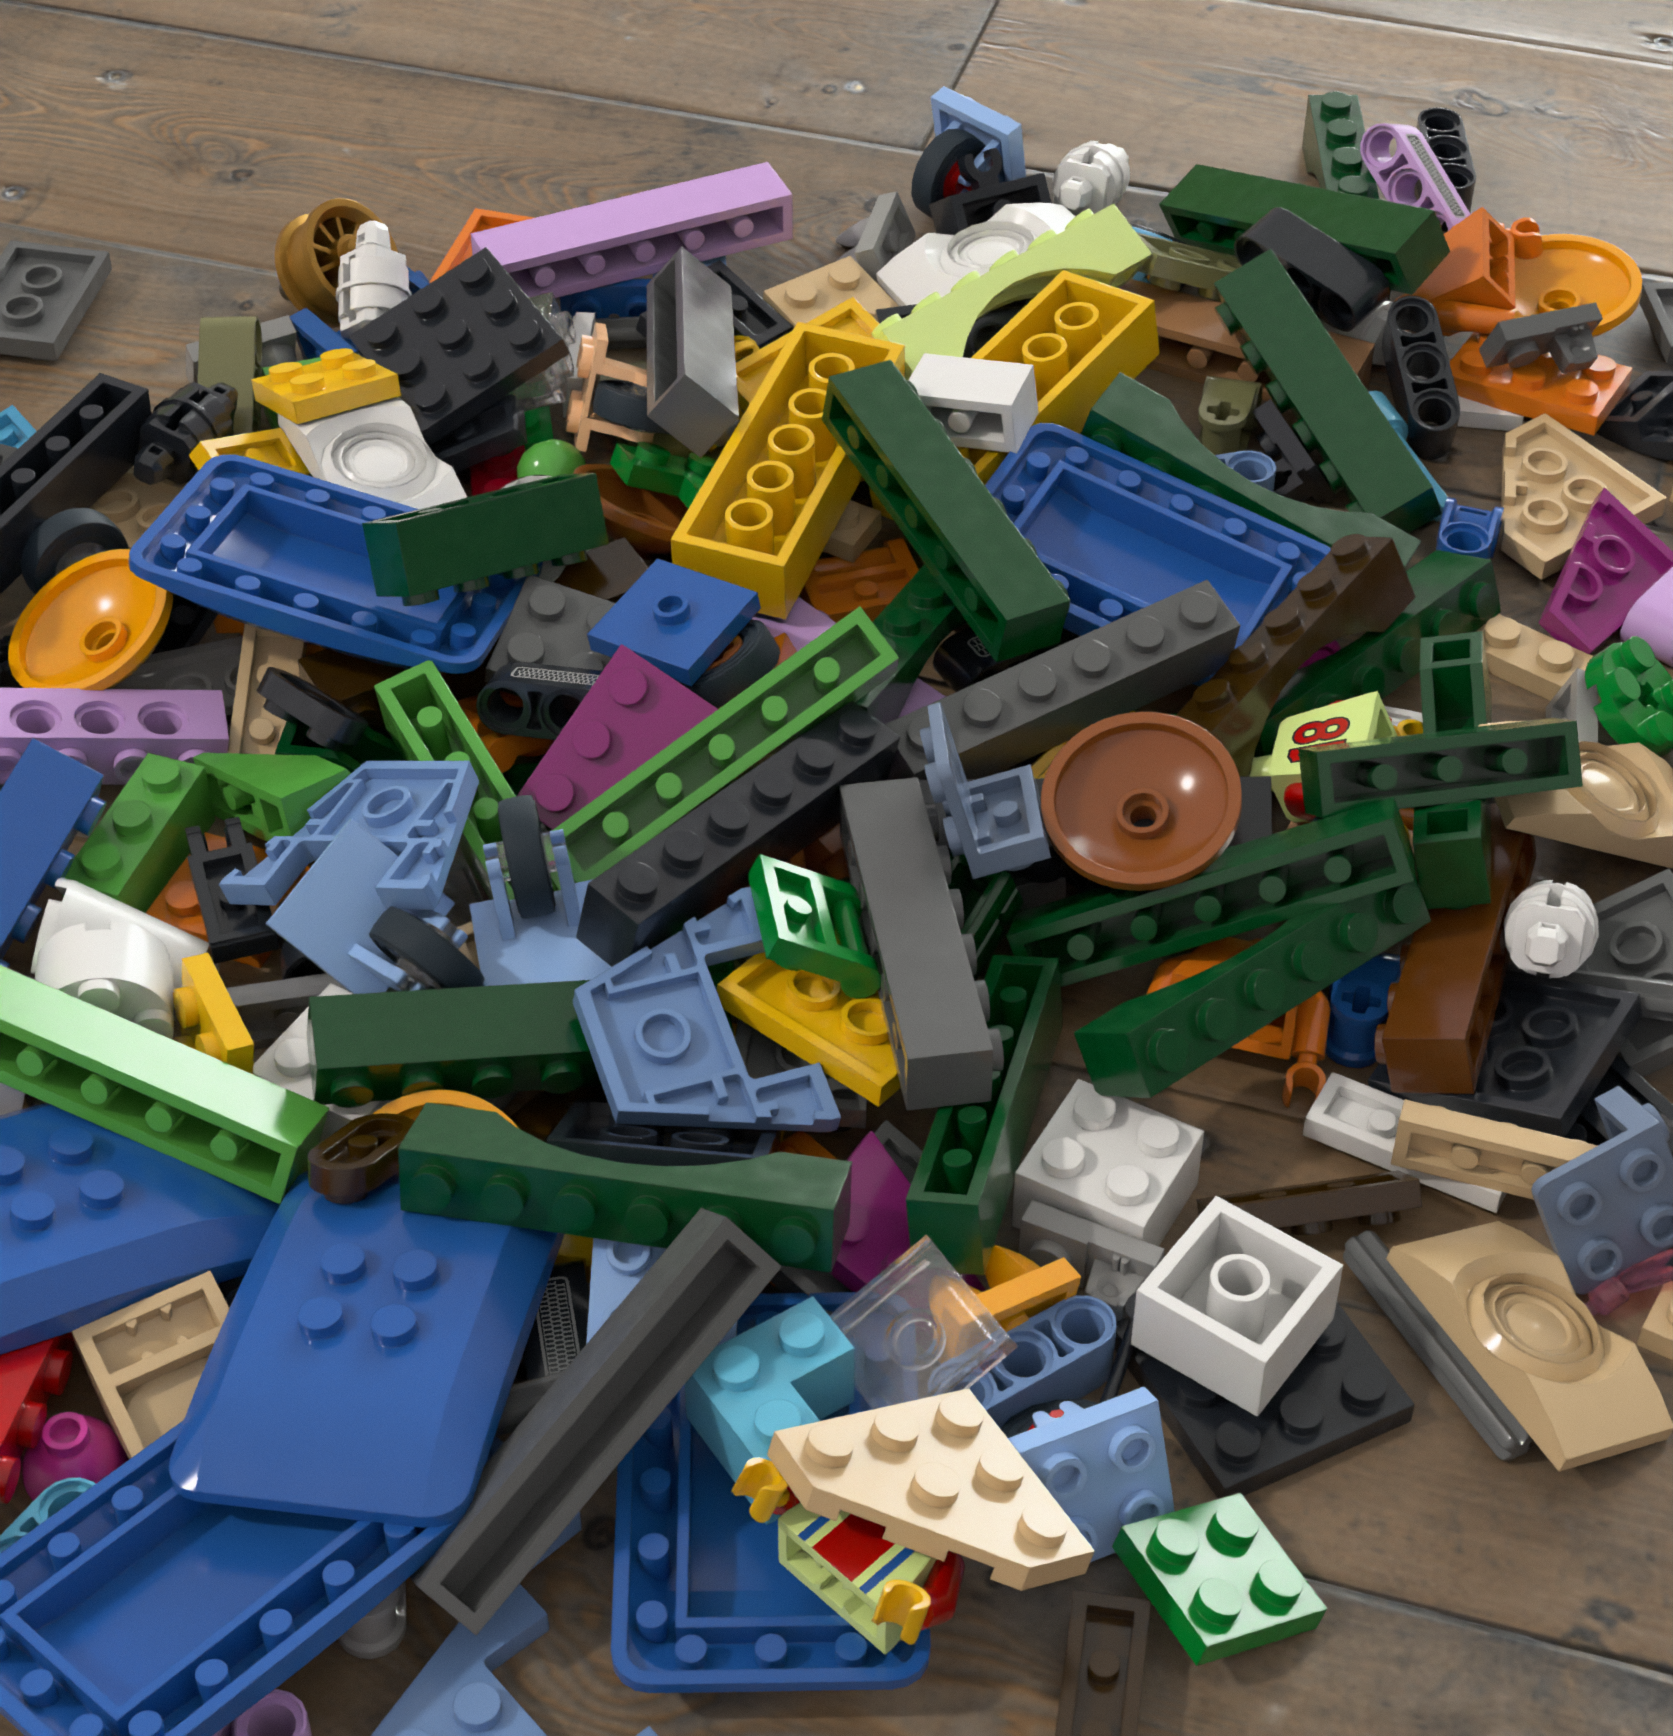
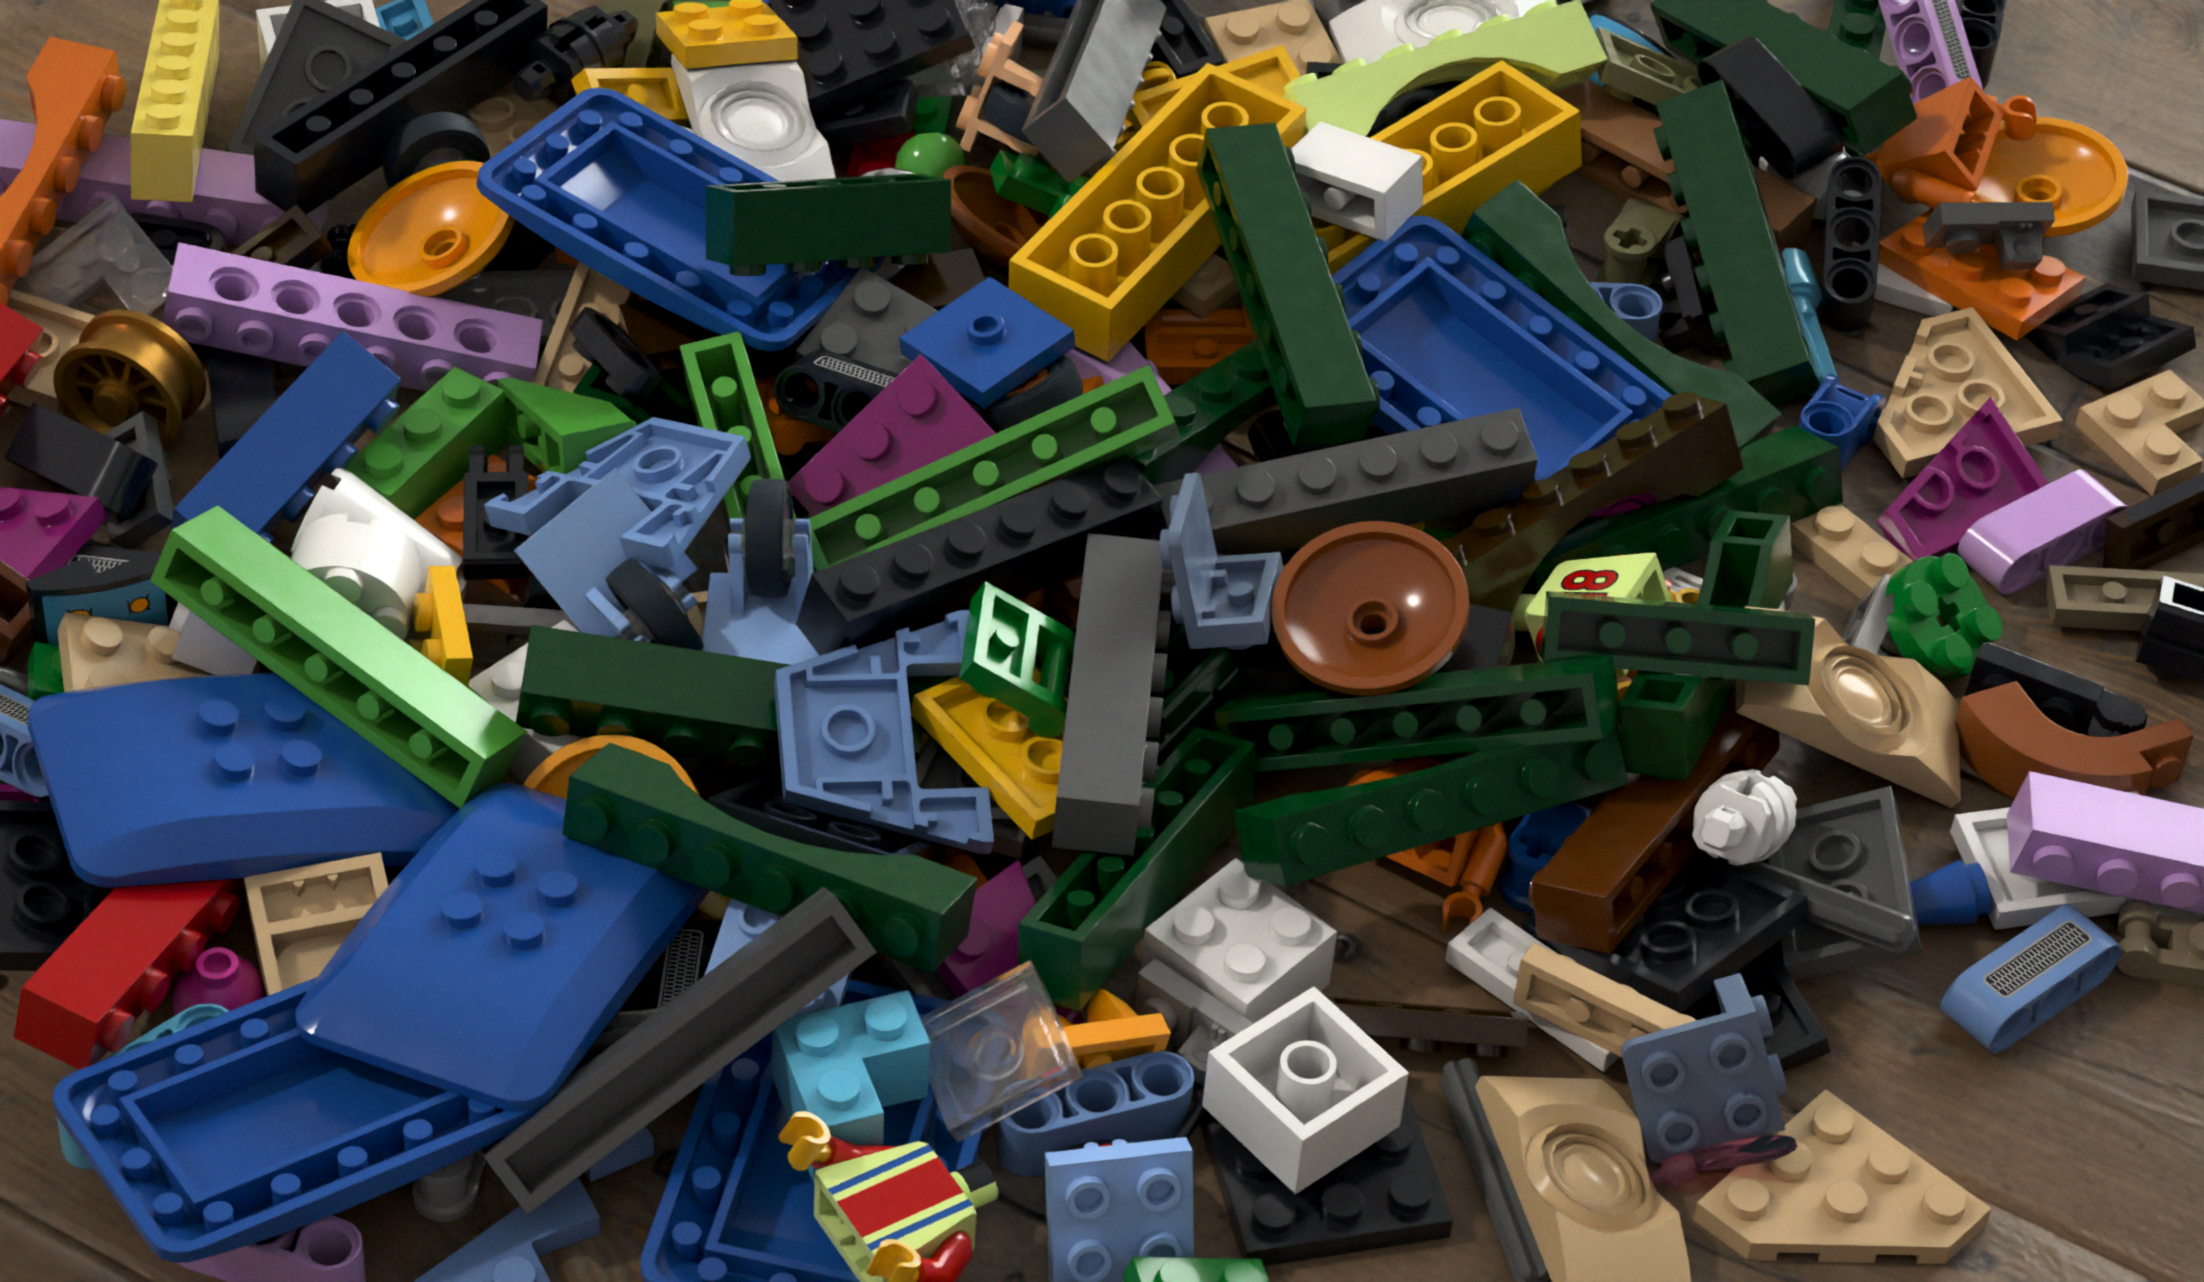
camera: 10 degrees right, 0 degrees up
(357, 1157) = (534, 780): dark brown plate -> none
(938, 1483) = (964, 1171): plate -> none

